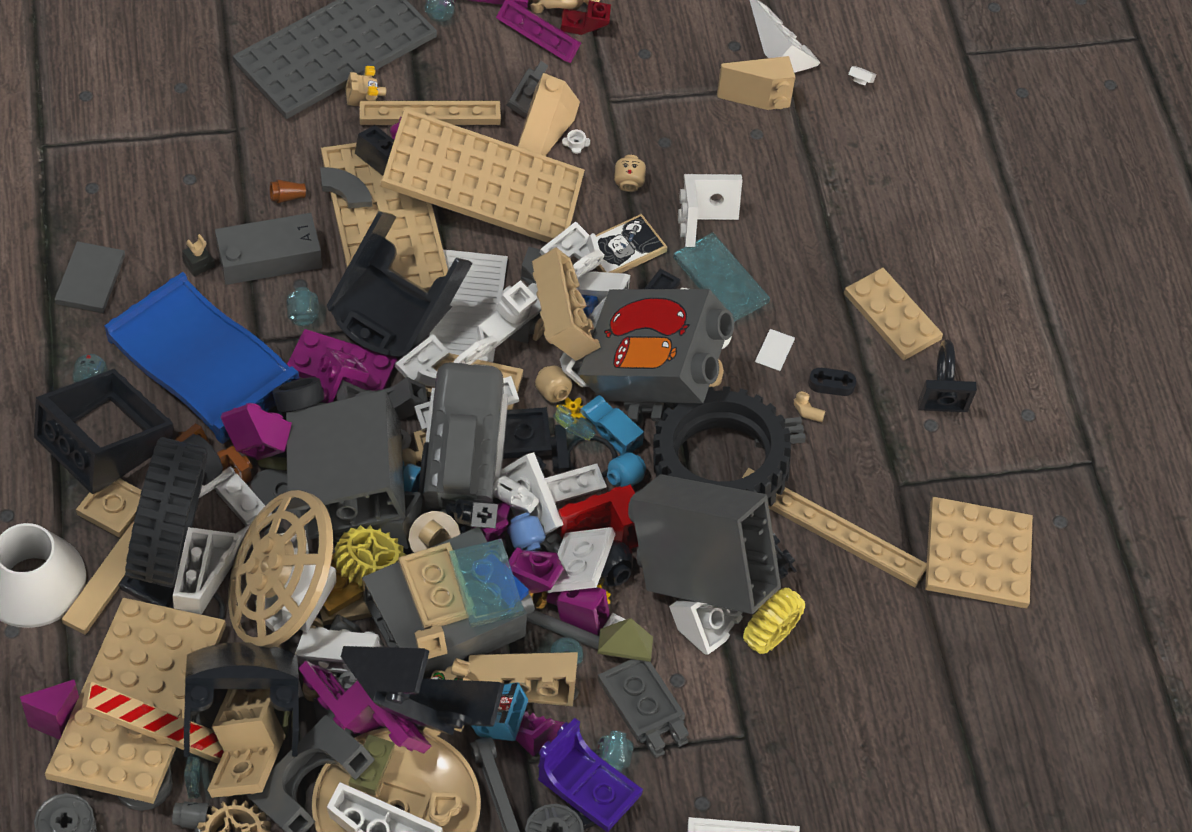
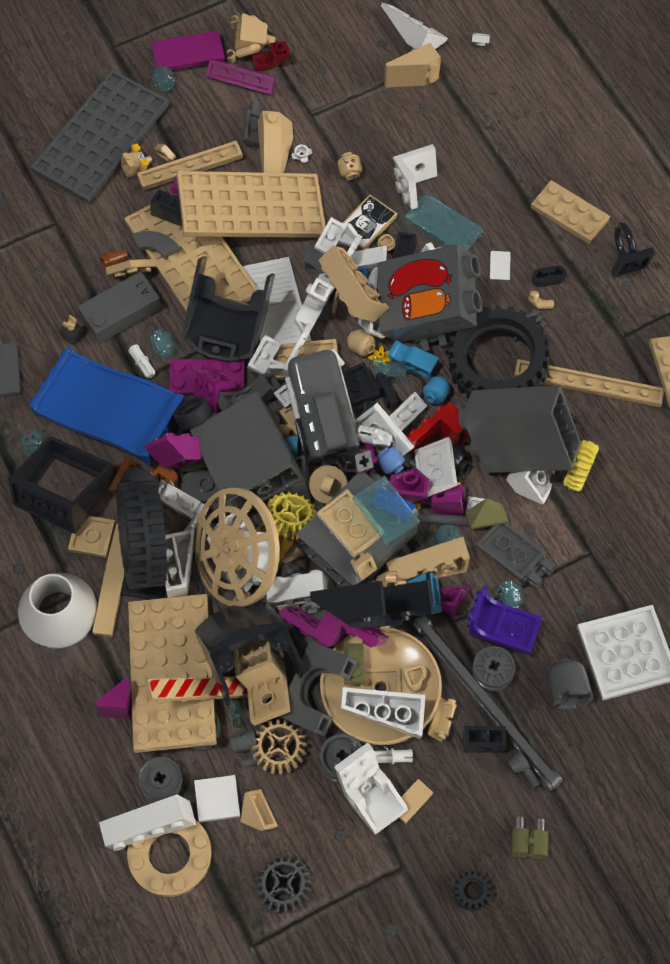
camera: 15 degrees left, 10 degrees up
(268, 320) = (141, 361): none -> white axle
(303, 203) = (131, 266): none -> tan plate
(404, 88) = (164, 152): none -> tan tile
(638, 277) = (386, 240): none -> tan plate

